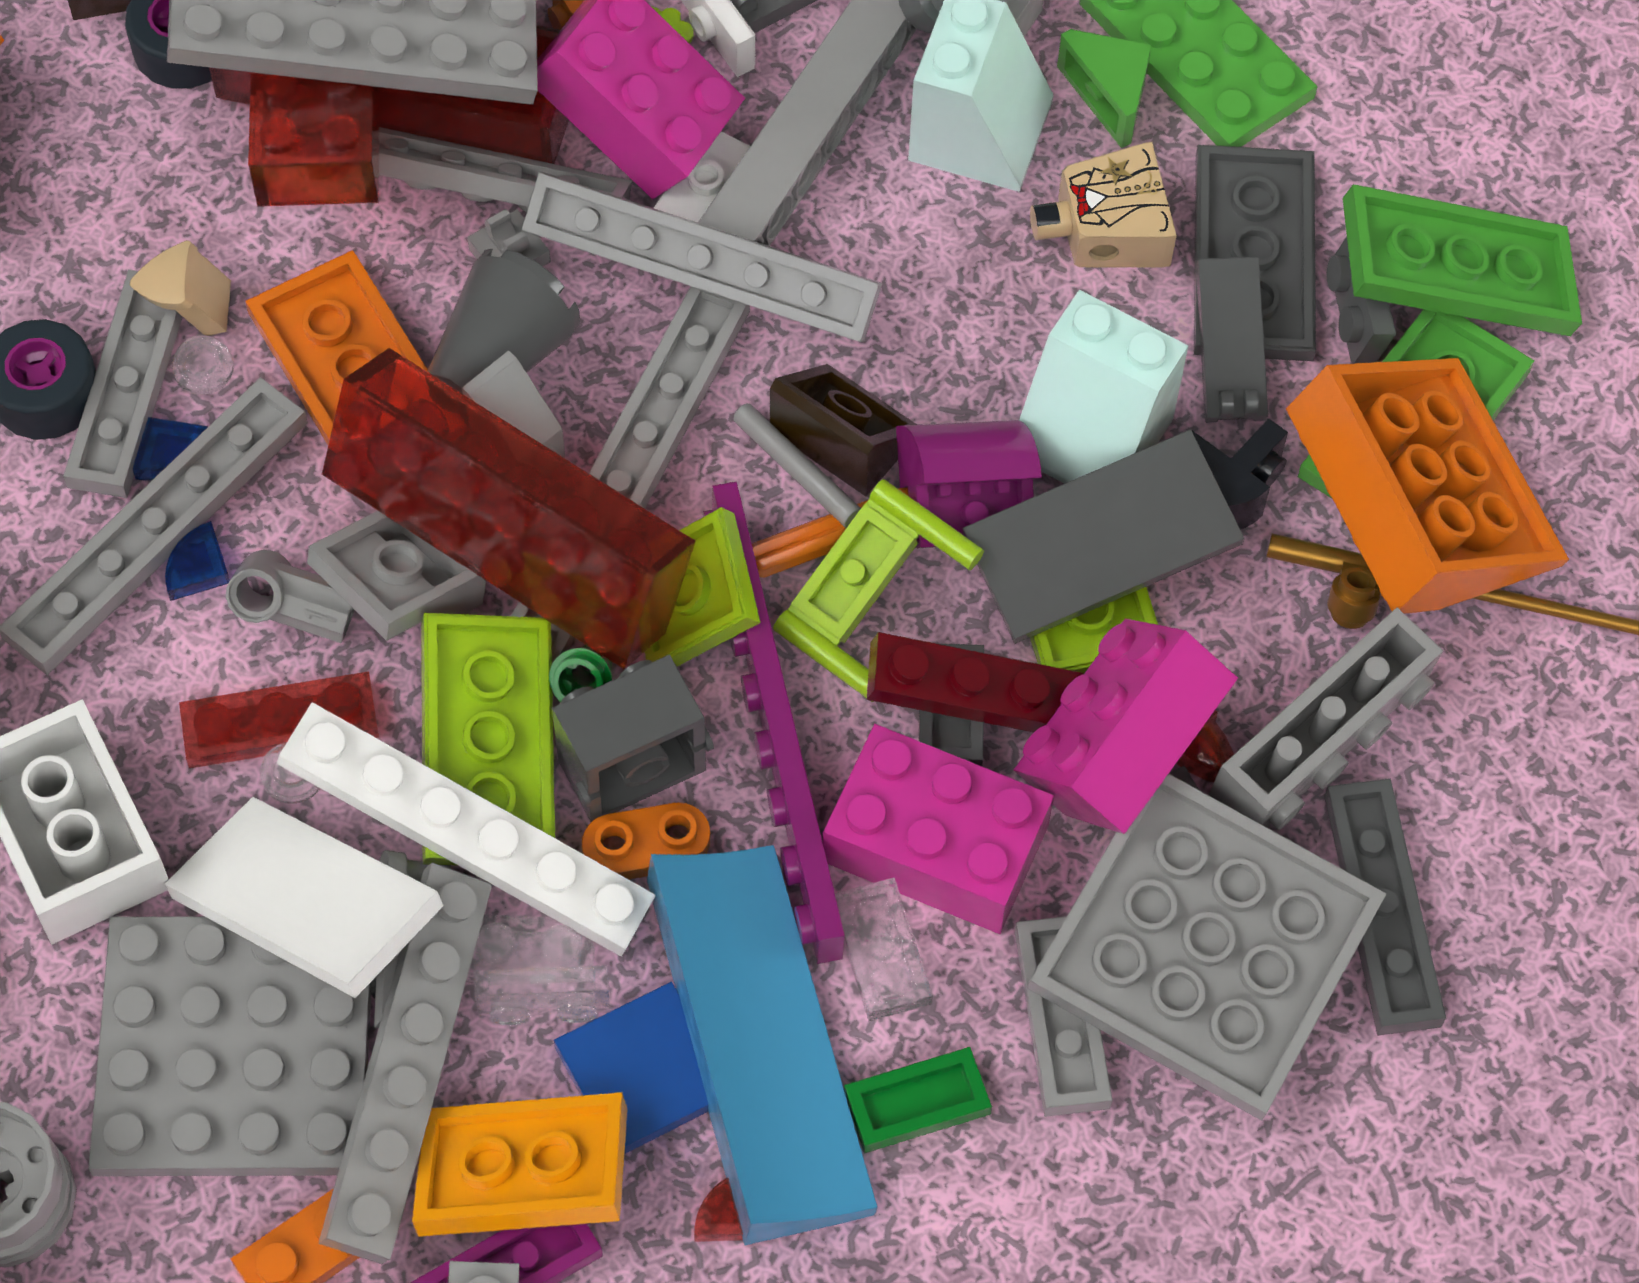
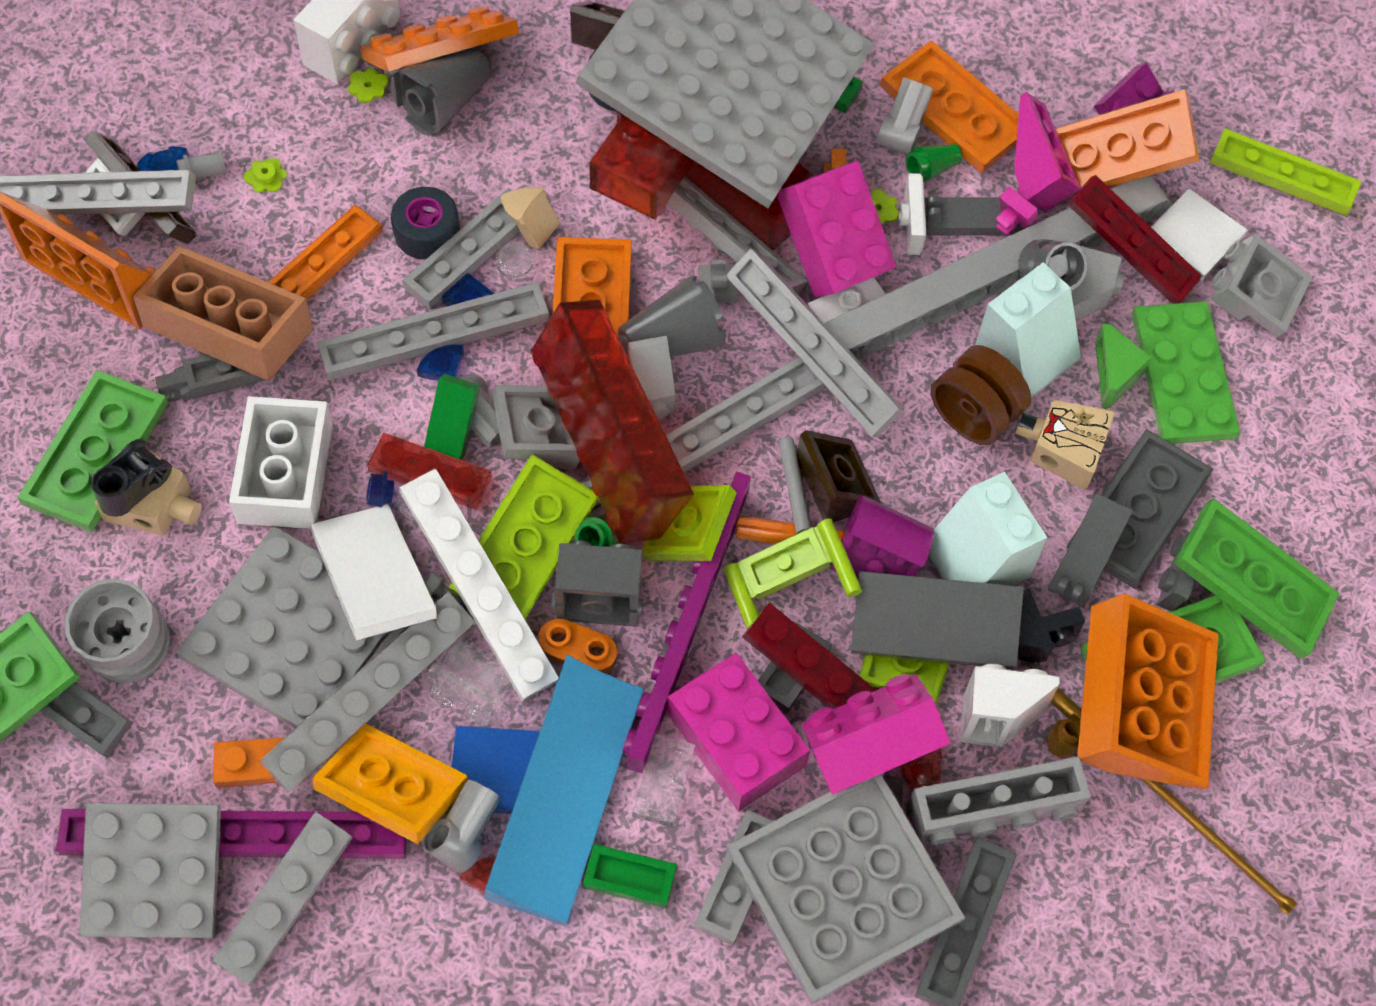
camera: 30 degrees right, 0 degrees up
(227, 784) = (379, 490): none -> clear blue plate
(269, 624) = (452, 416): none -> green tile
(657, 1184) = (456, 837): none -> light grey piece
(967, 210) = (981, 395): none -> reddish brown wheel
(1251, 593) = (1003, 703): none -> white slope

